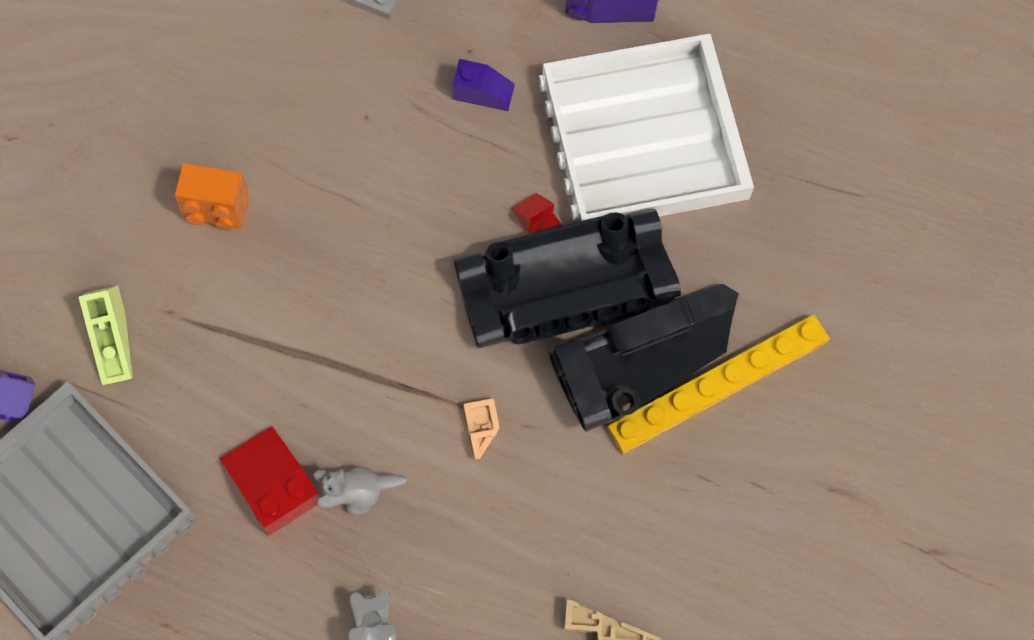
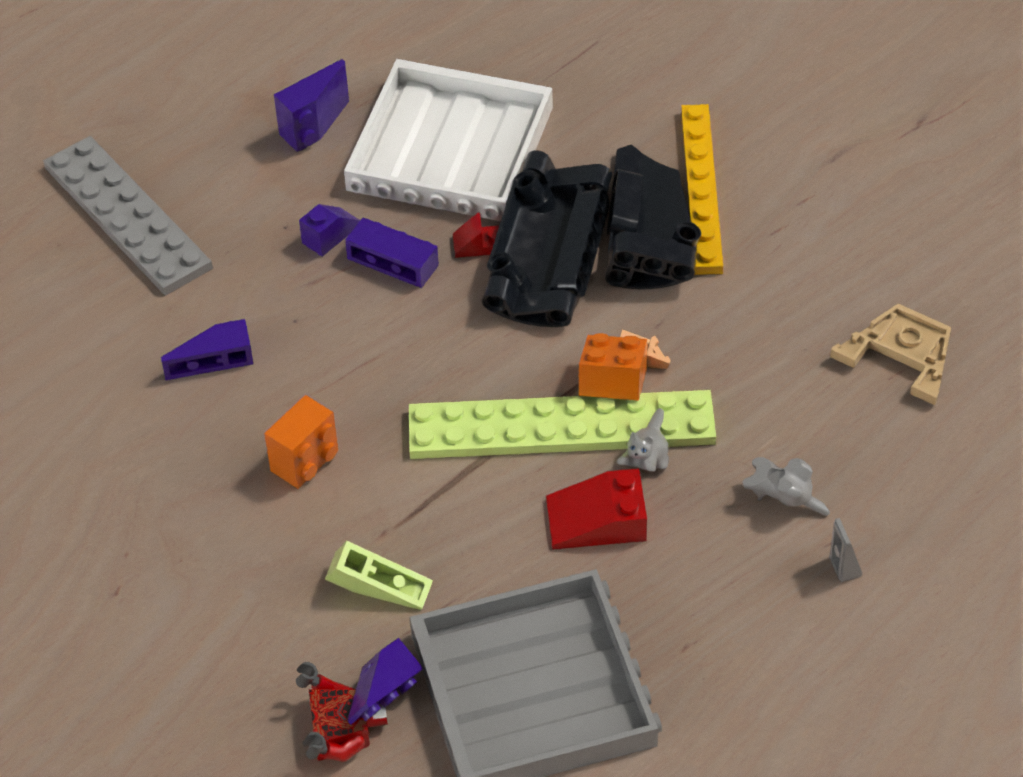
camera: 55 degrees left, 20 degrees down
(290, 71) = (213, 350): none -> dark purple slope
(361, 400) = (555, 424): none -> yellowish green plate
(432, 412) = (613, 367): none -> orange brick
(480, 155) = (392, 252): none -> dark purple brick

